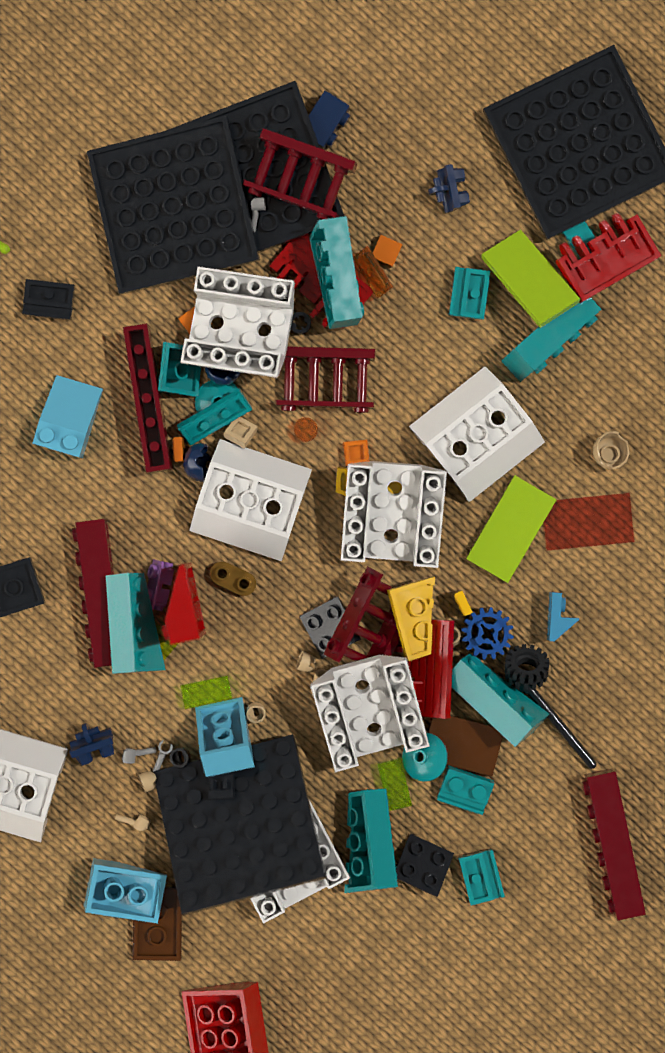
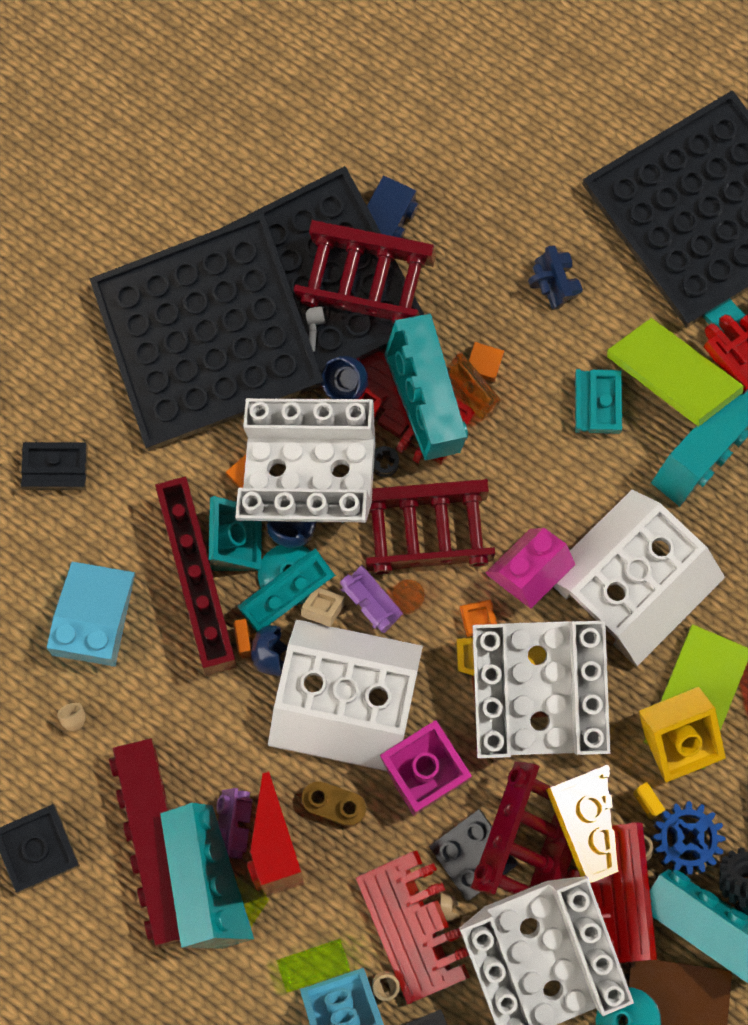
camera: 10 degrees left, 15 degrees down
(47, 493) = (72, 716): none -> tan hinge
(273, 423) = (372, 598): none -> medium lavender hinge
(275, 258) = (344, 378): none -> dark blue hair
(278, 674) = (410, 927): none -> hinge
(301, 562) = (425, 767): none -> dark pink slope
(400, 419) = (532, 565): none -> dark pink slope
(494, 558) = (683, 734): none -> yellow slope

